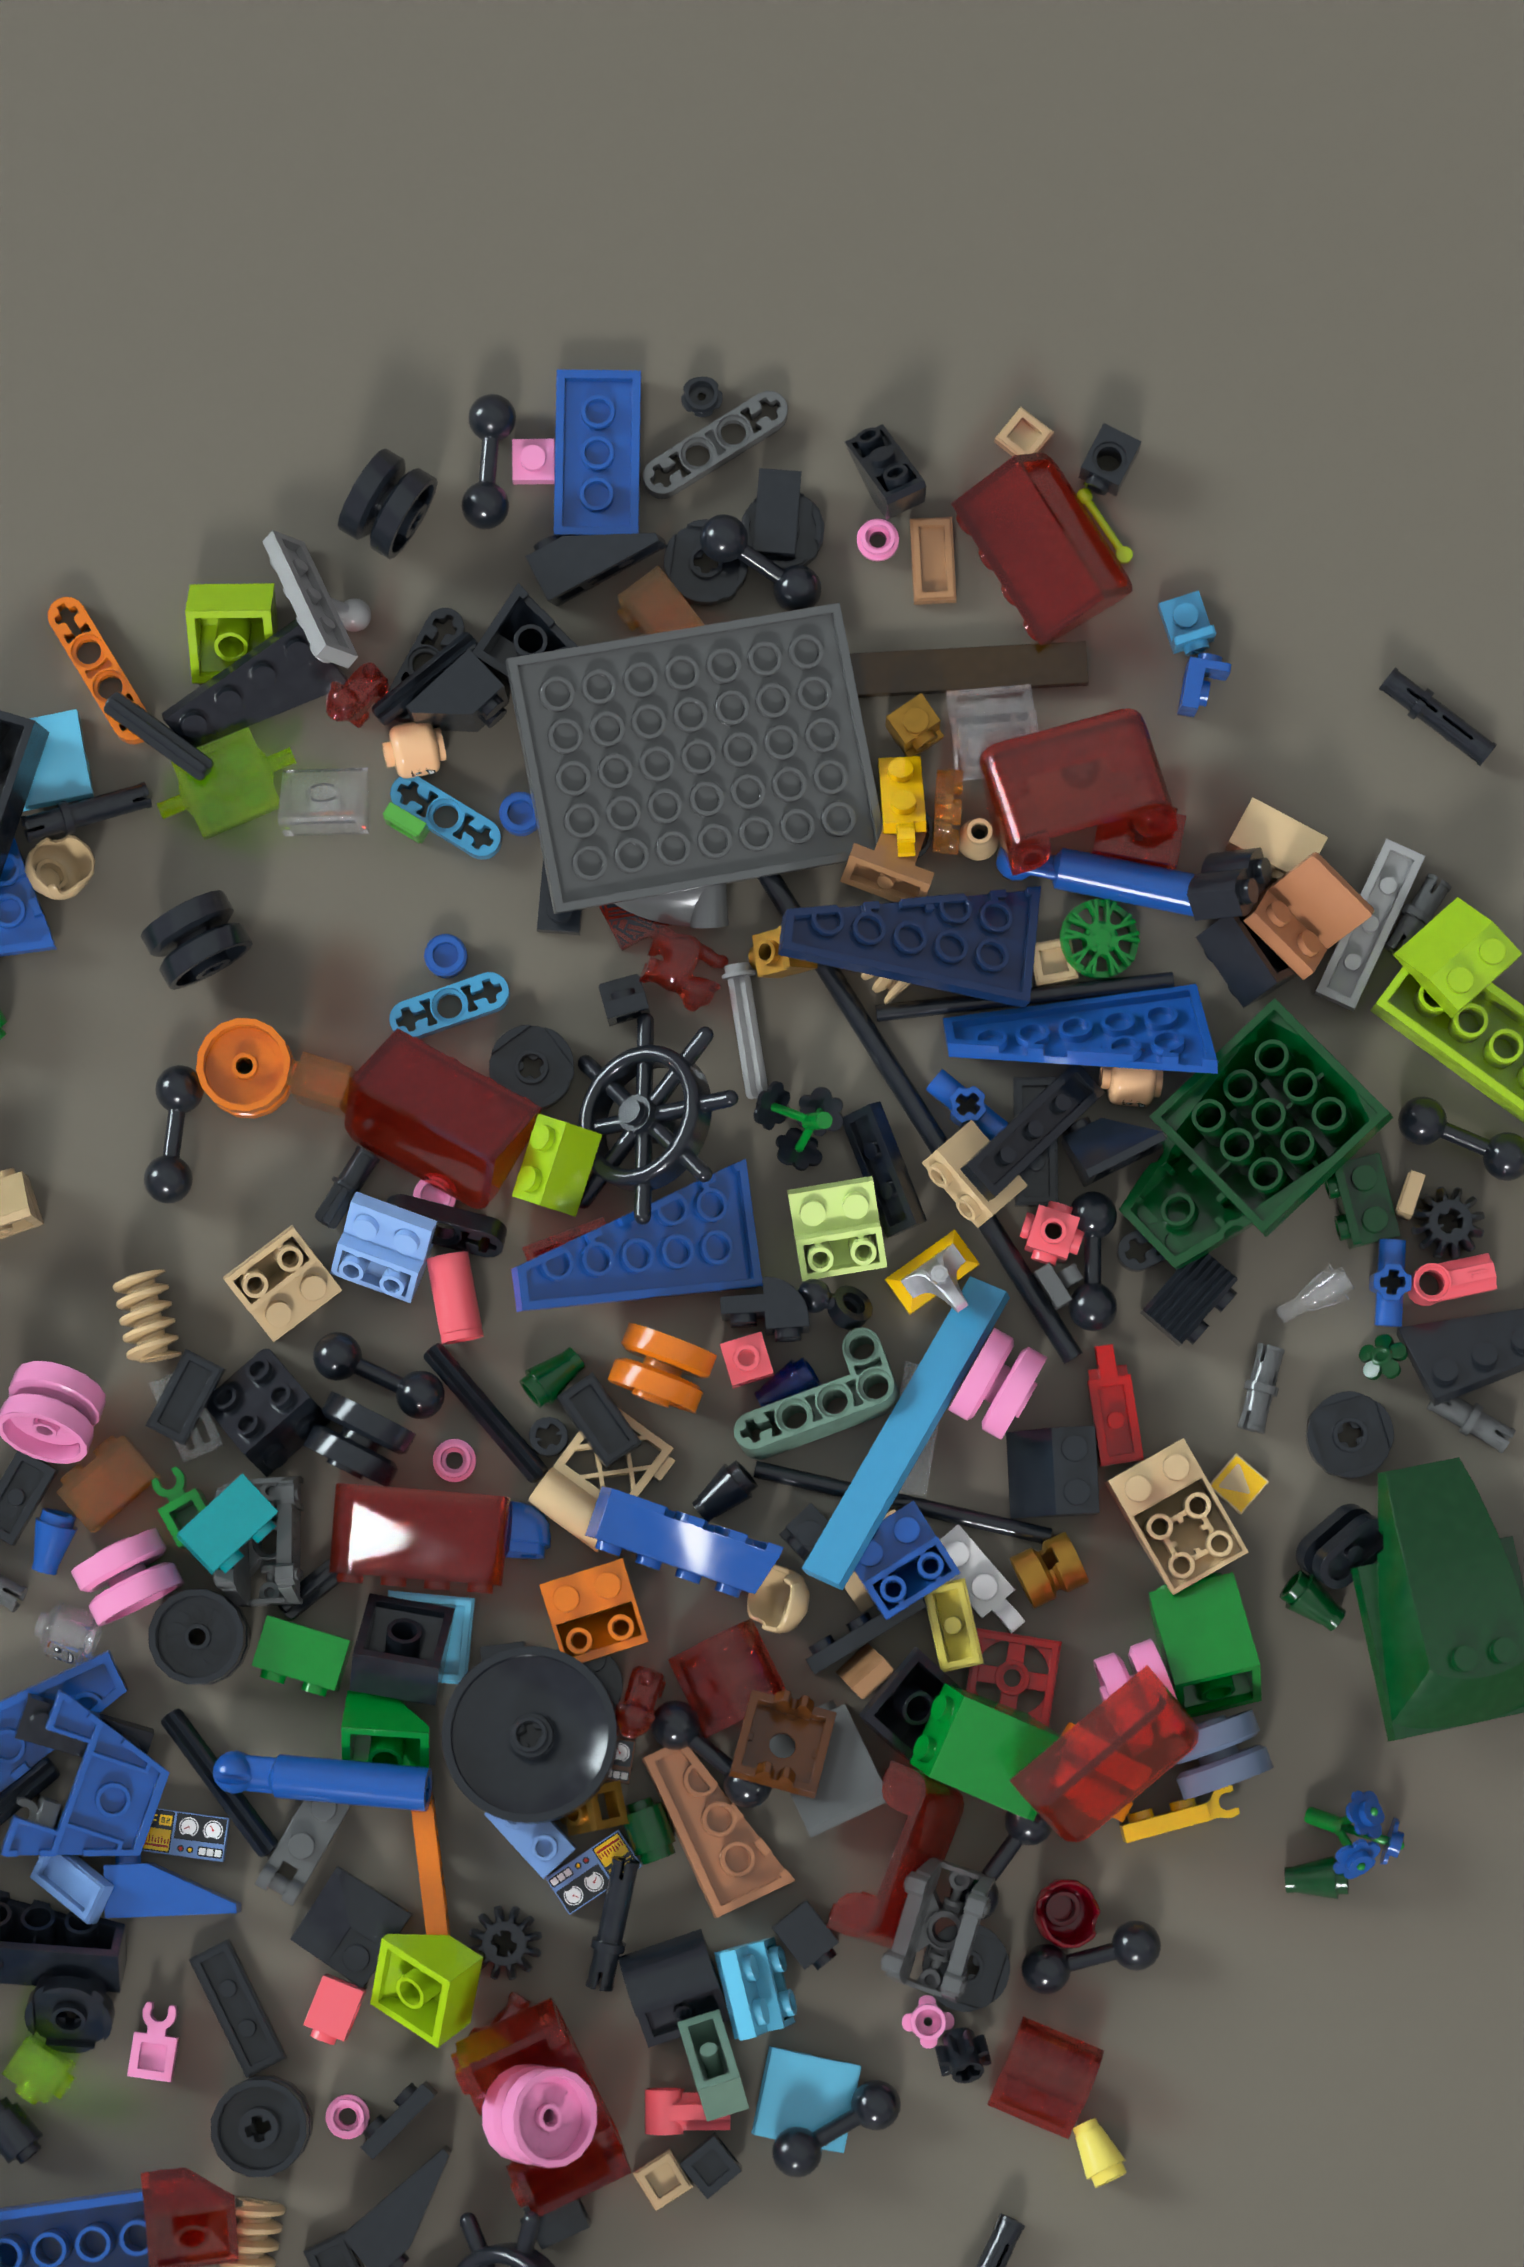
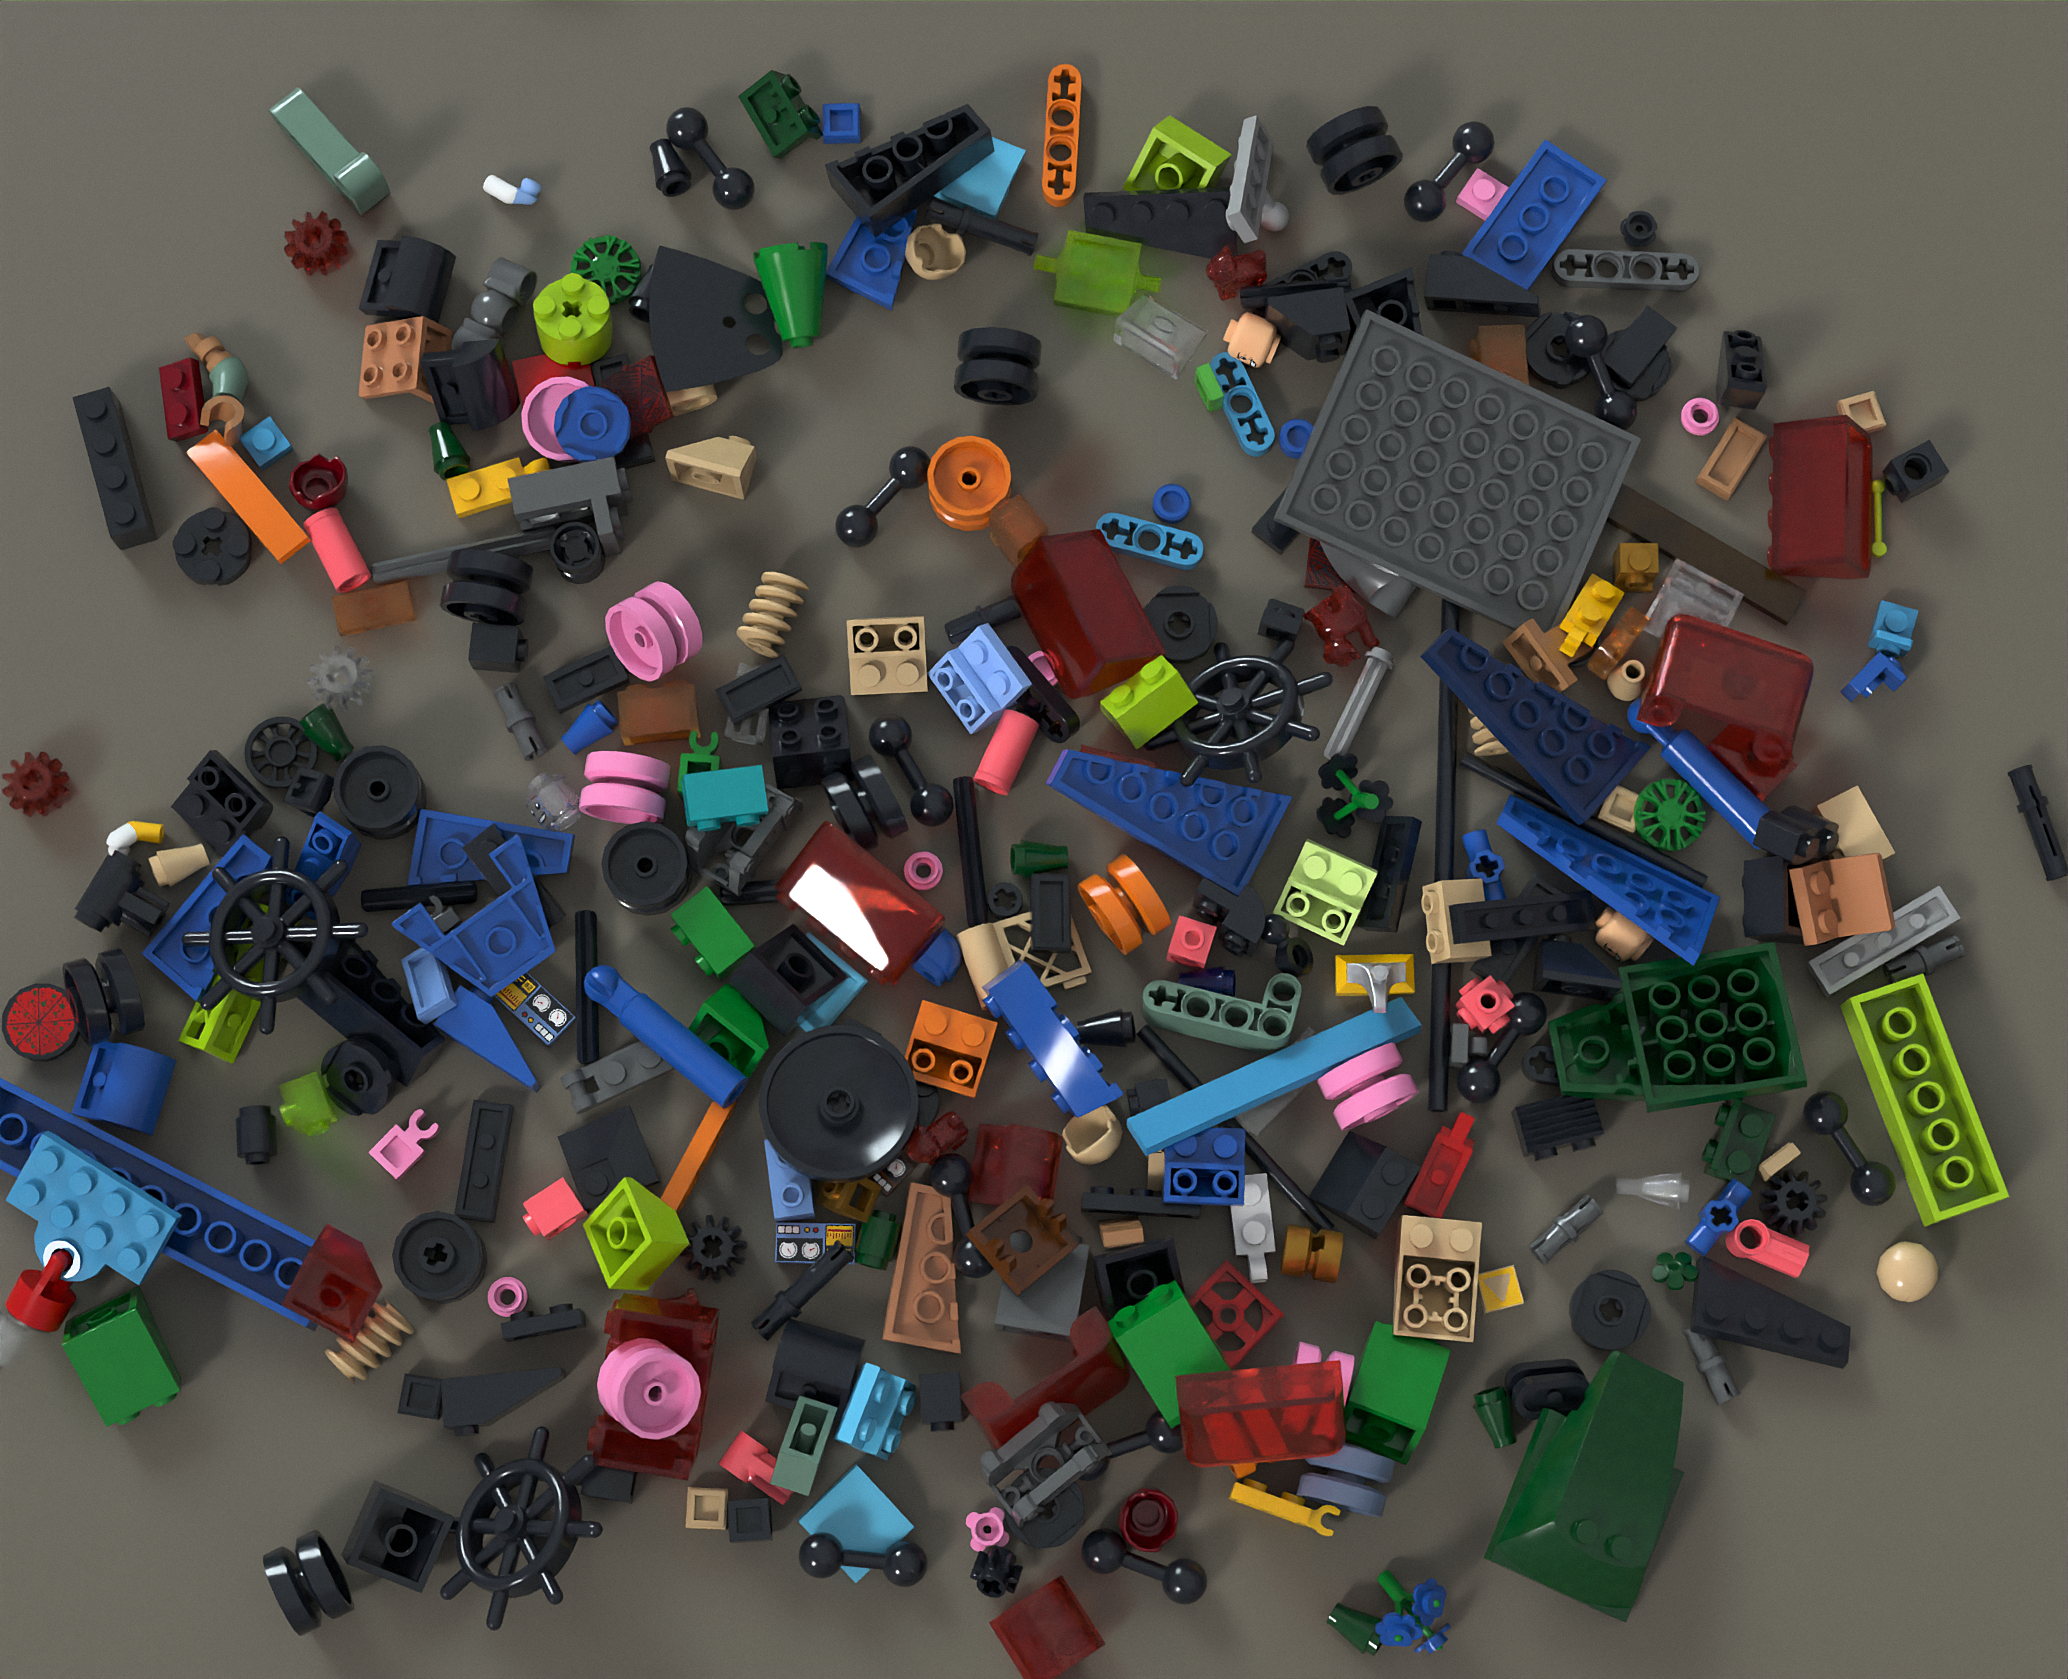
camera: 30 degrees right, 5 degrees down
(158, 736) = (1071, 205): black axle -> none
(767, 962) = (1414, 669): pearl gold brick -> none
(953, 1626) = (1210, 1245): light yellow slope -> none
(1457, 955) = (1937, 1004): lime slope -> none

